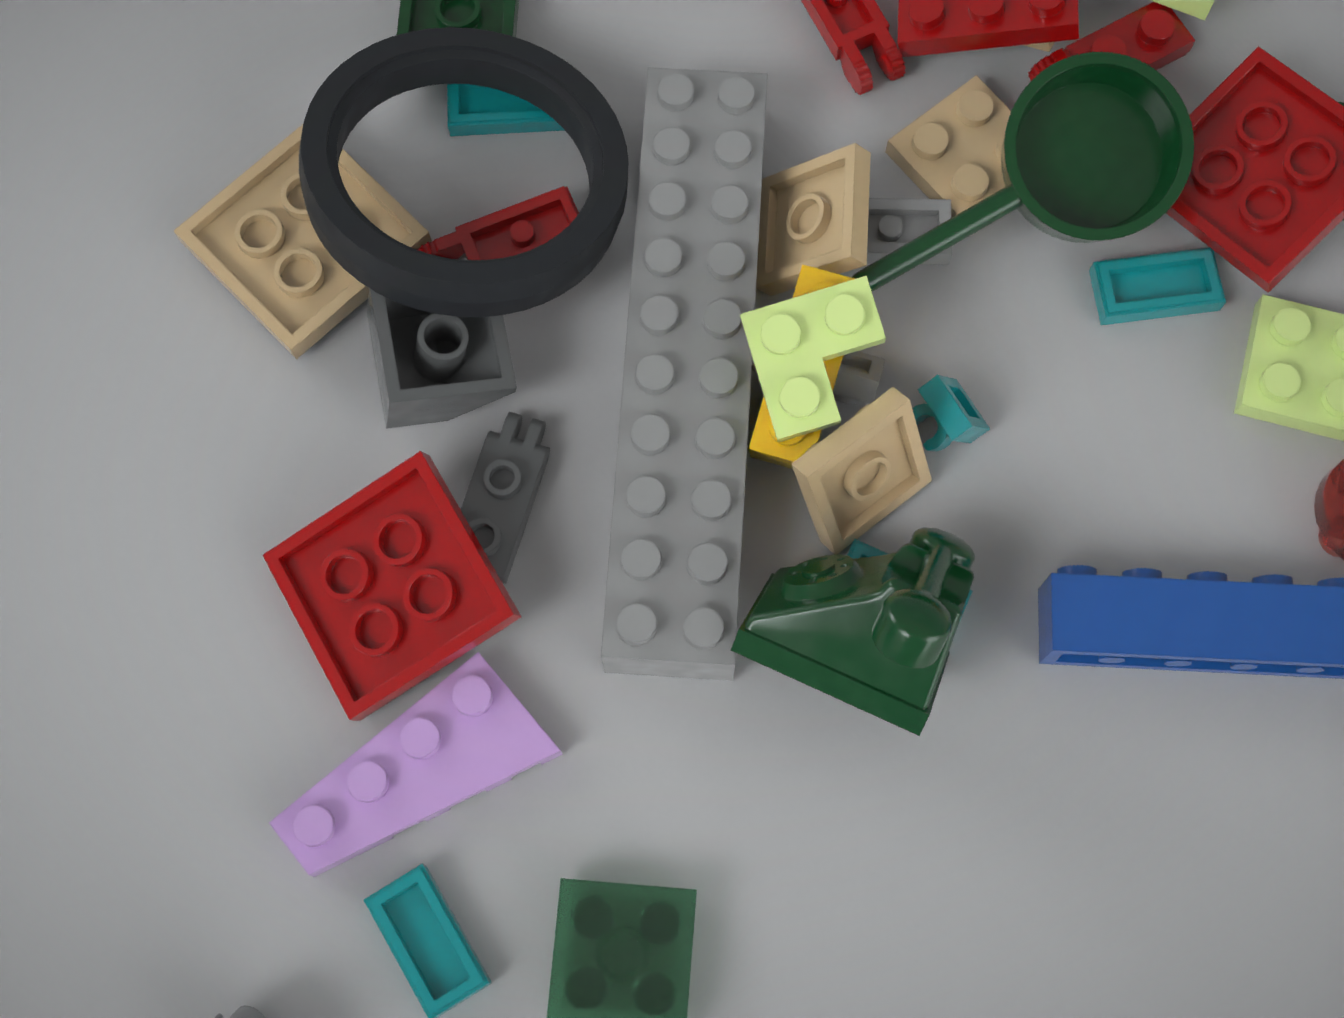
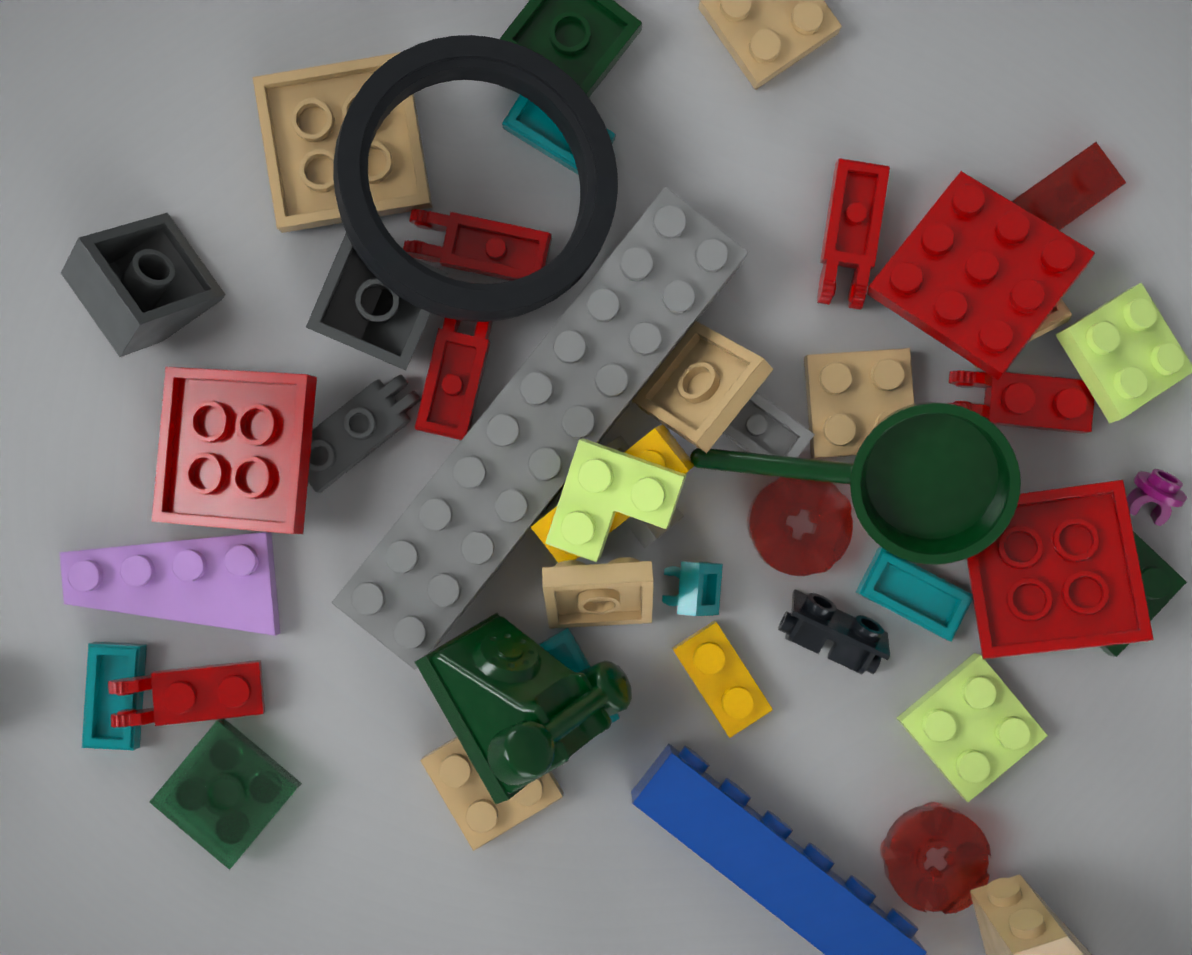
camera: 35 degrees right, 15 degrees up
(180, 493) = (140, 282): none -> dark grey slope
(515, 871) = (193, 694): none -> red hinge
(567, 378) = (453, 380): none -> red hinge
(887, 764) = (471, 802): none -> tan plate
(1007, 261) = (815, 550): none -> clear red plate
(1041, 486) = (722, 679): none -> yellow plate
(1139, 363) = (857, 641): none -> black hinge
(1299, 46) = (1157, 488): none -> magenta plate

